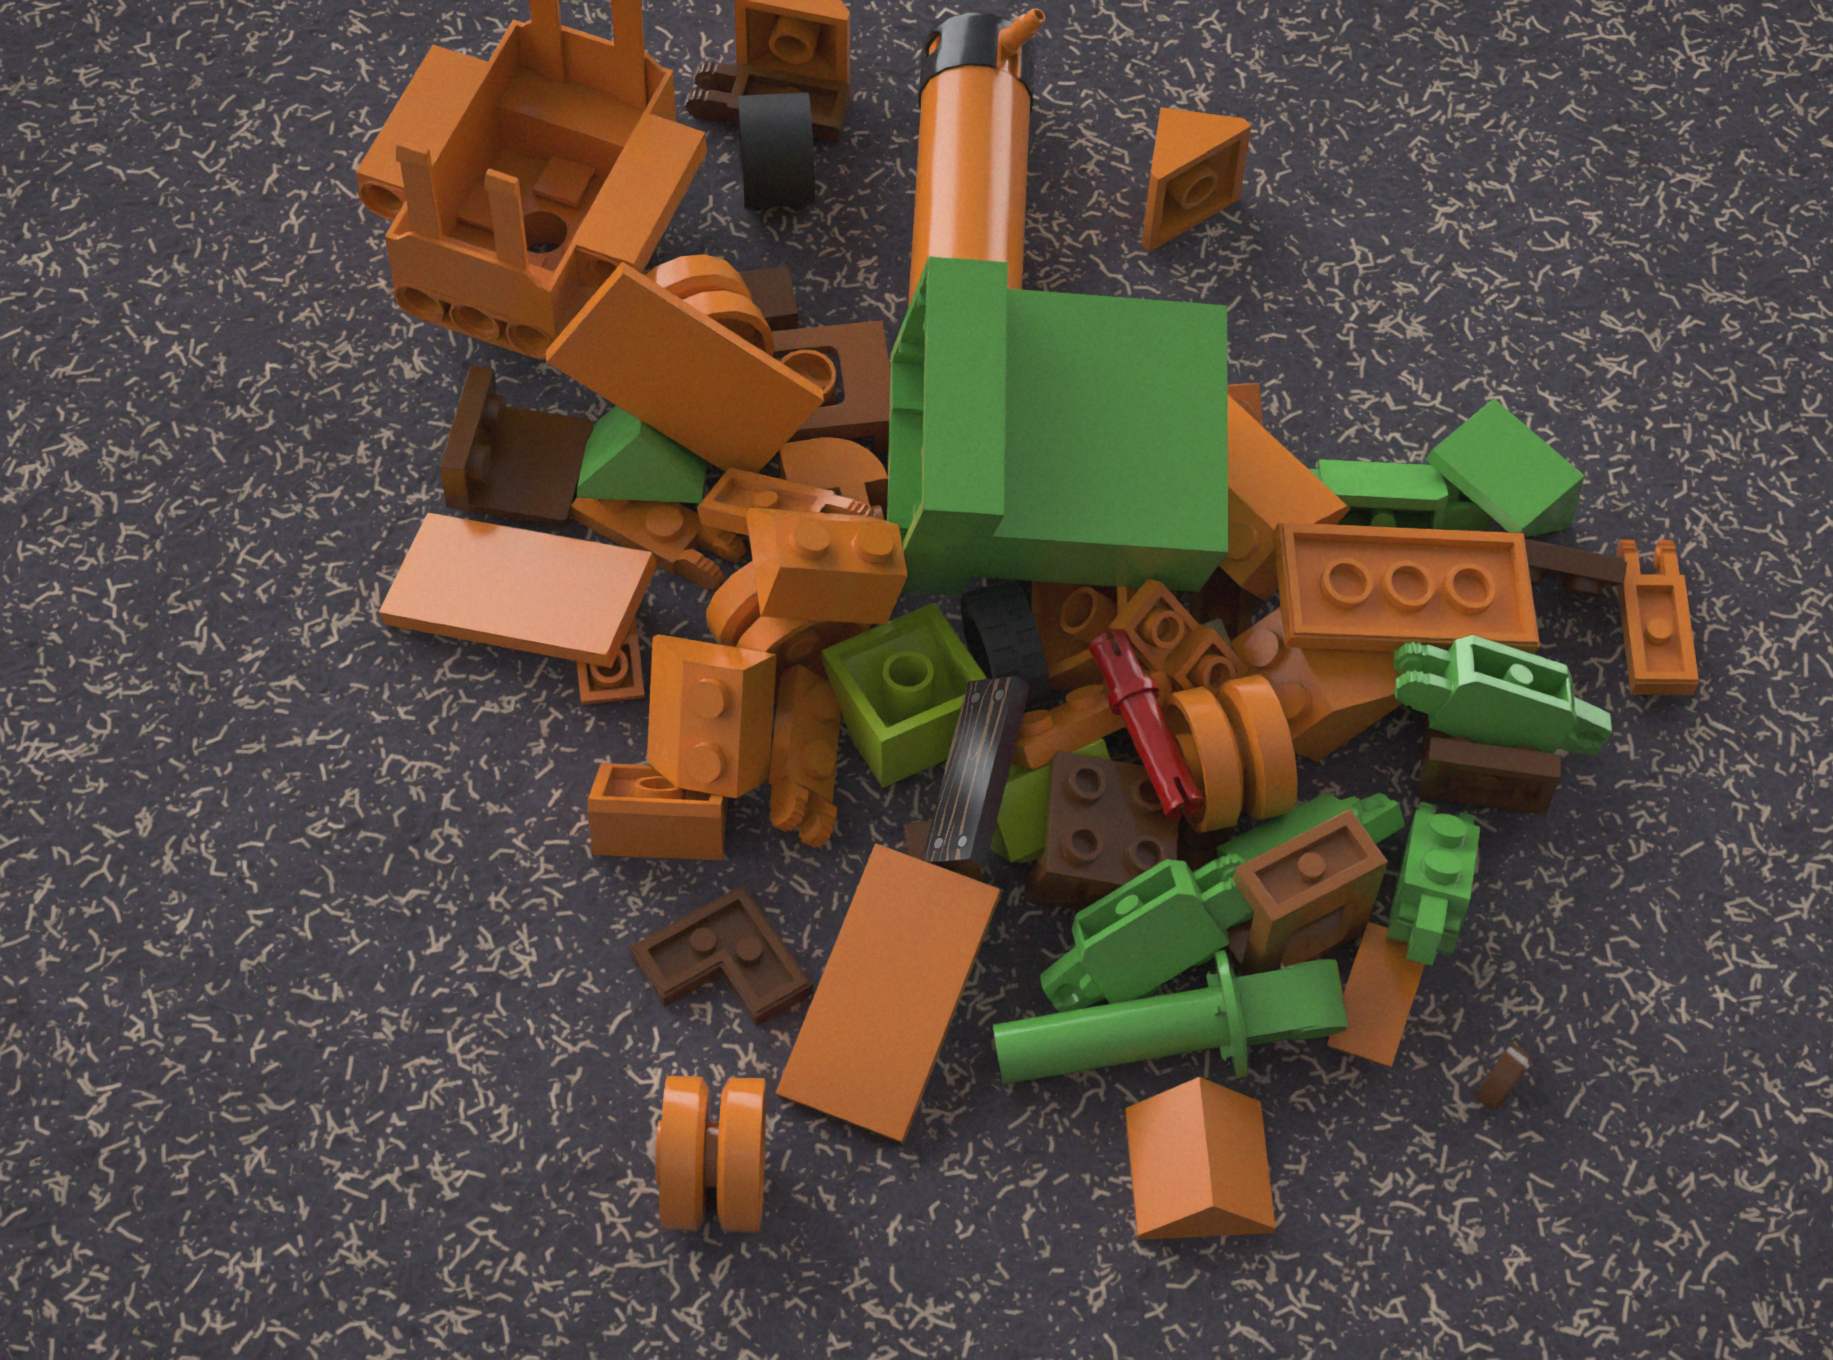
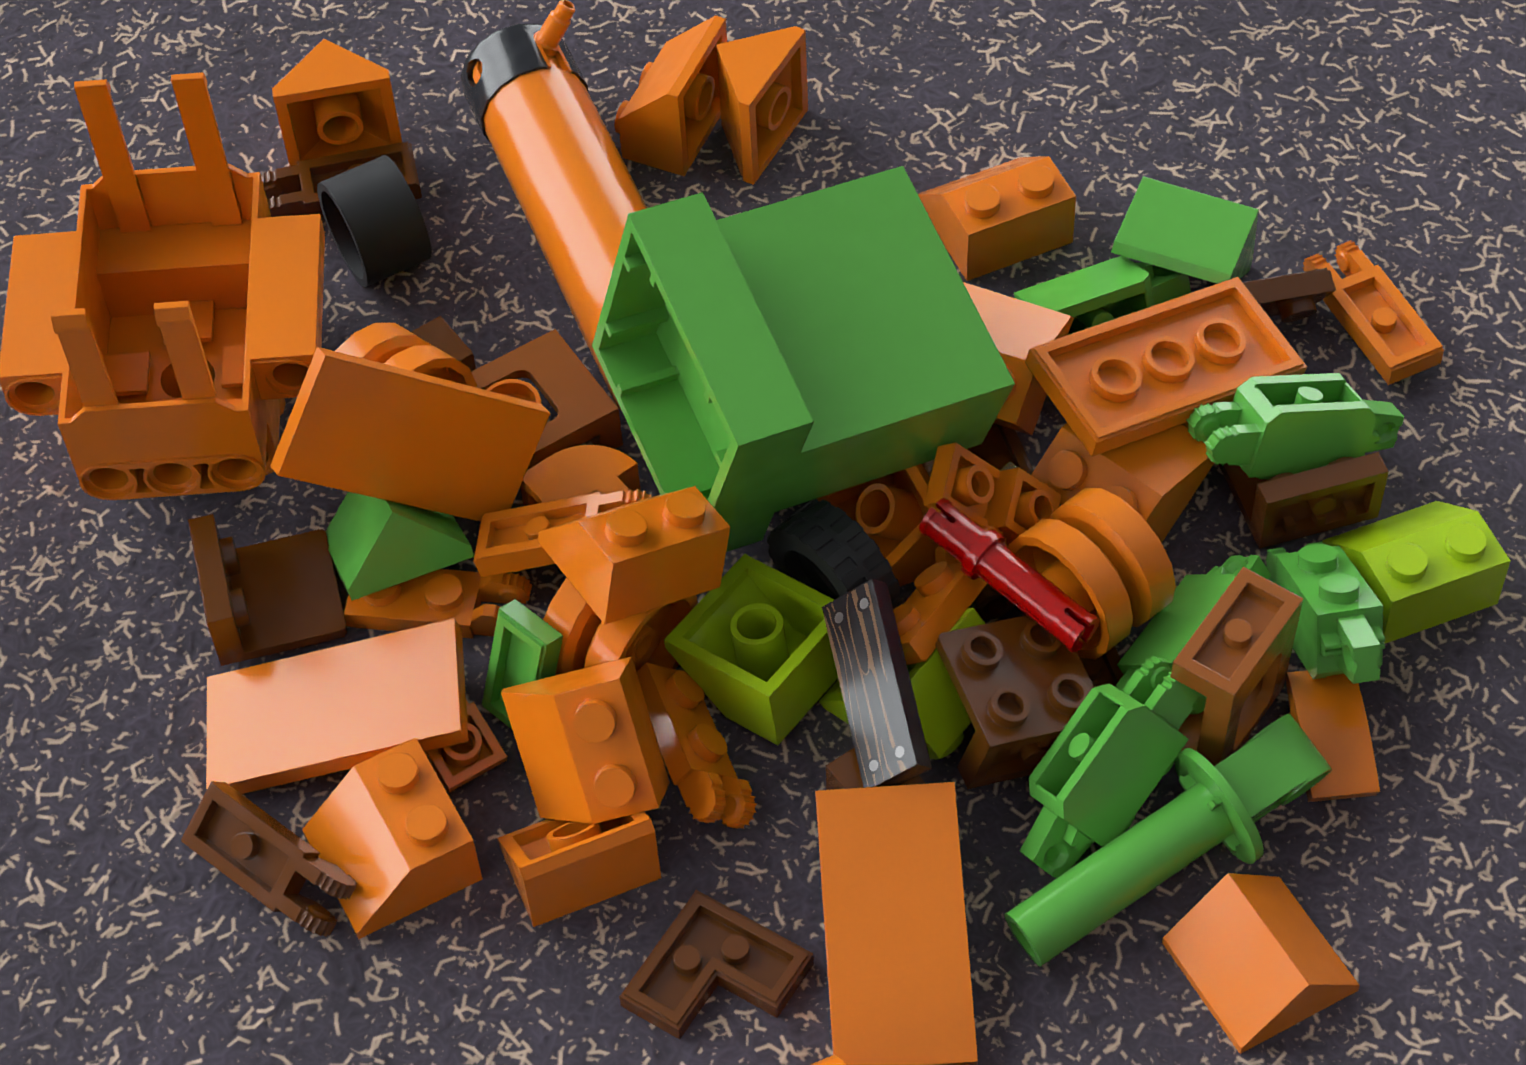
camera: 20 degrees left, 5 degrees down
(395, 695) = (264, 857): none -> reddish brown hinge
(508, 725) = (395, 837): none -> orange slope
(693, 605) = (521, 652): none -> bright green tile
(1109, 145) = (674, 101): none -> orange slope
(1357, 377) = (1003, 214): none -> orange slope
(1503, 1077) = (1481, 757): reddish brown tile -> none
(1551, 879) = (1427, 565): none -> lime slope

